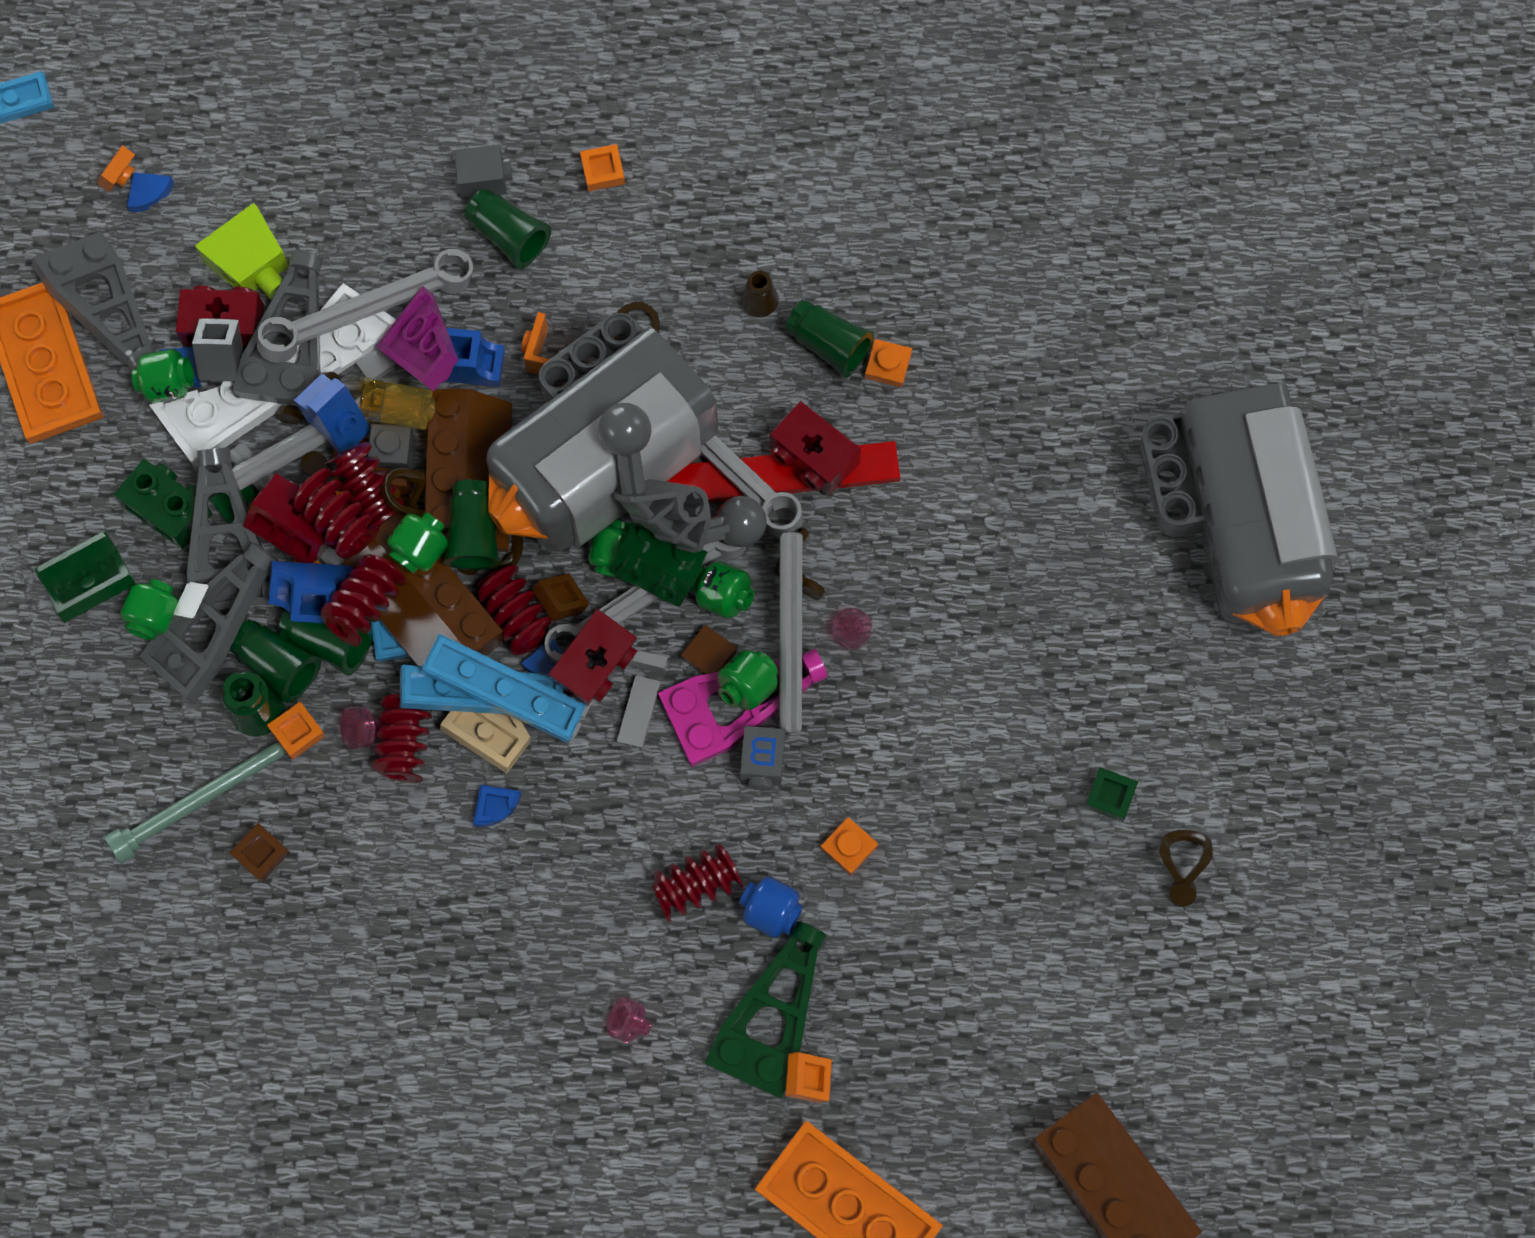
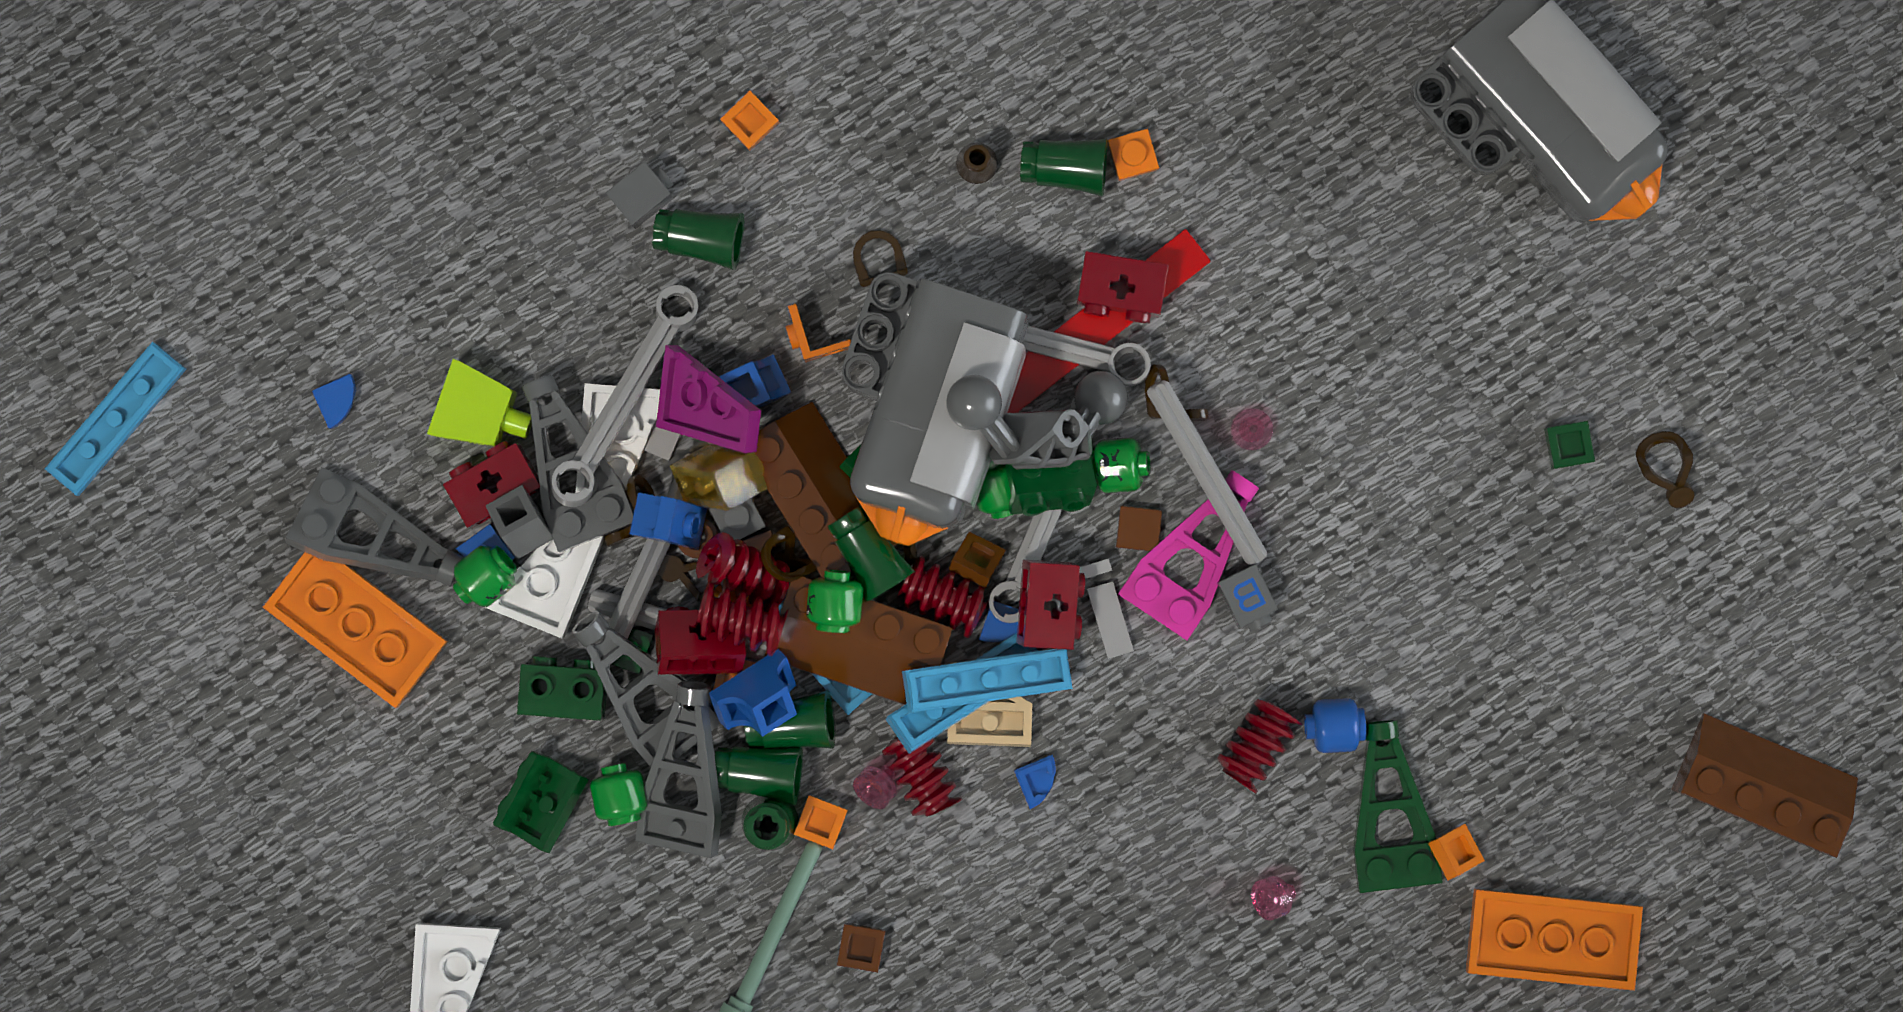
camera: 35 degrees left, 15 degrees up
(118, 170) = (296, 399): orange plate -> none
(190, 600) = (652, 766): white sticker -> none
(360, 597) = (814, 681): dark red piece -> none
(747, 680) = (1196, 540): green head -> none
(849, 846) = (1368, 628): orange plate -> none

